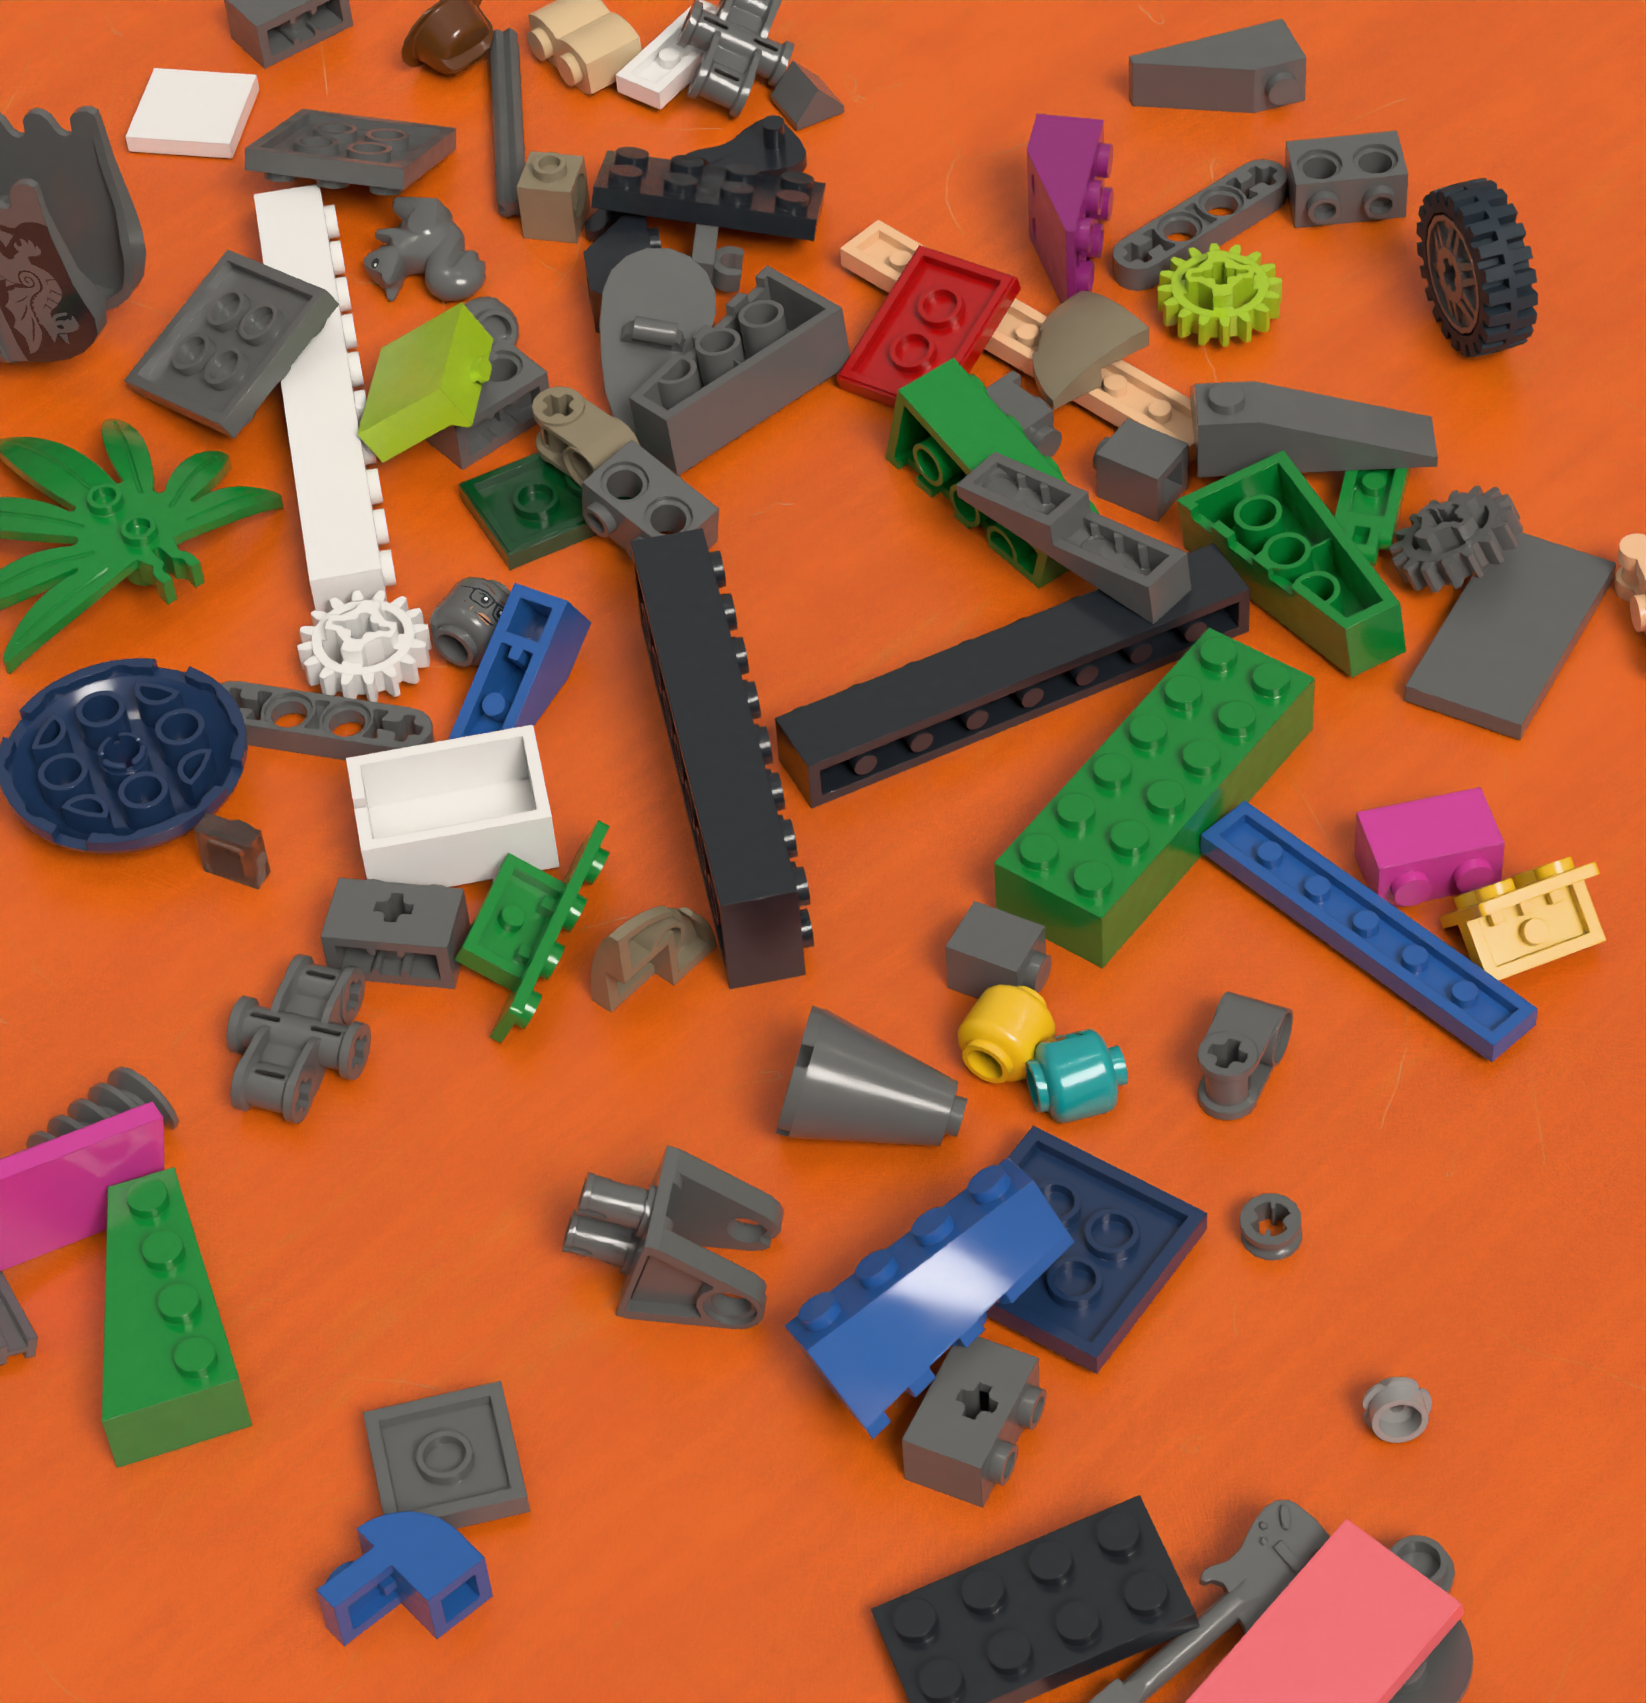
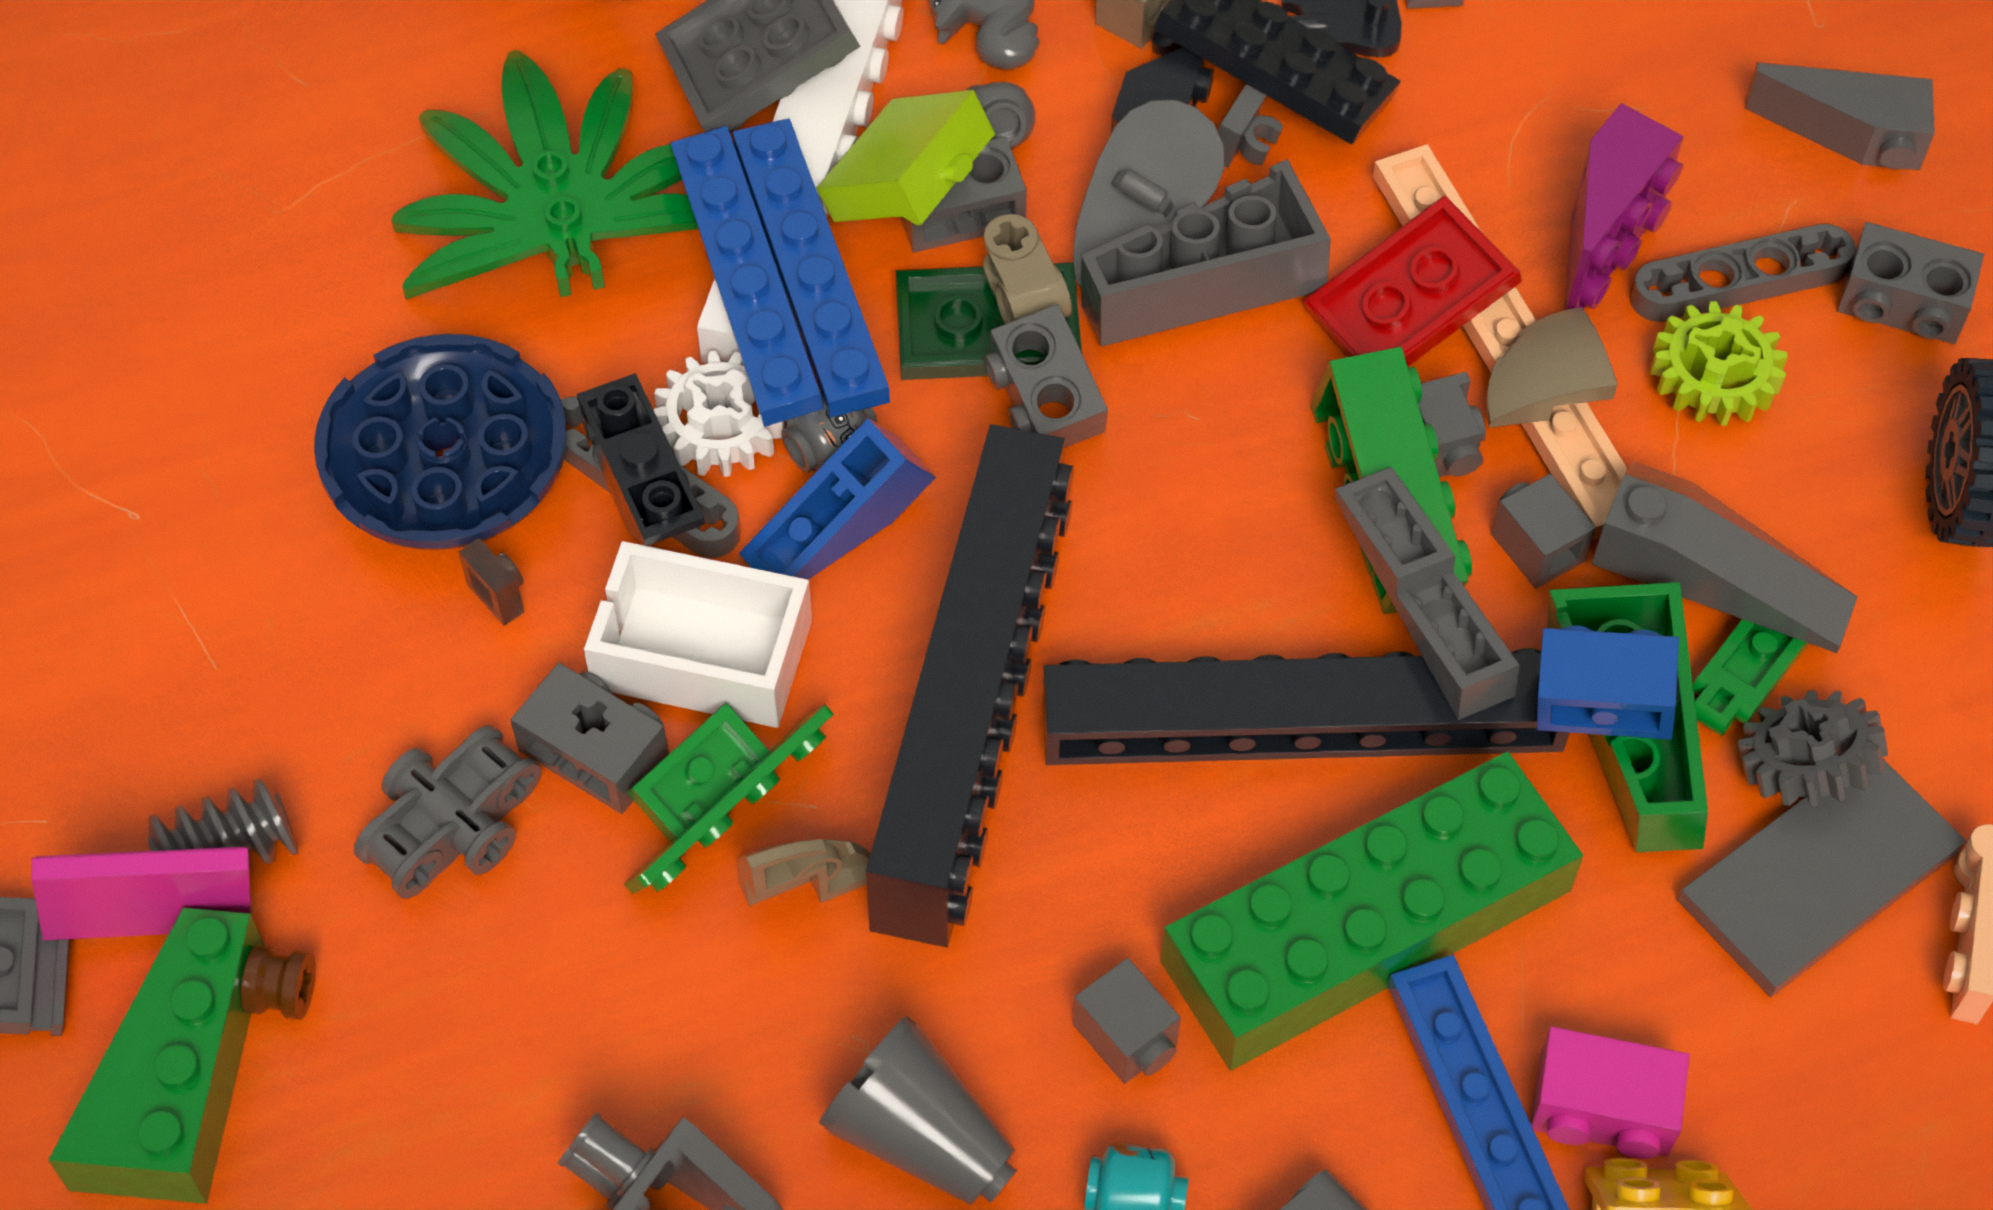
camera: 20 degrees right, 10 degrees up
(221, 1224) = (278, 982): none -> reddish brown wheel
(322, 697) = (638, 462): none -> black slope
(334, 522) = (747, 277): none -> blue plate
(390, 493) = (811, 269): none -> blue plate
(1004, 1032) = (1091, 1111): yellow head -> none
(1267, 538) = (1607, 682): none -> blue brick

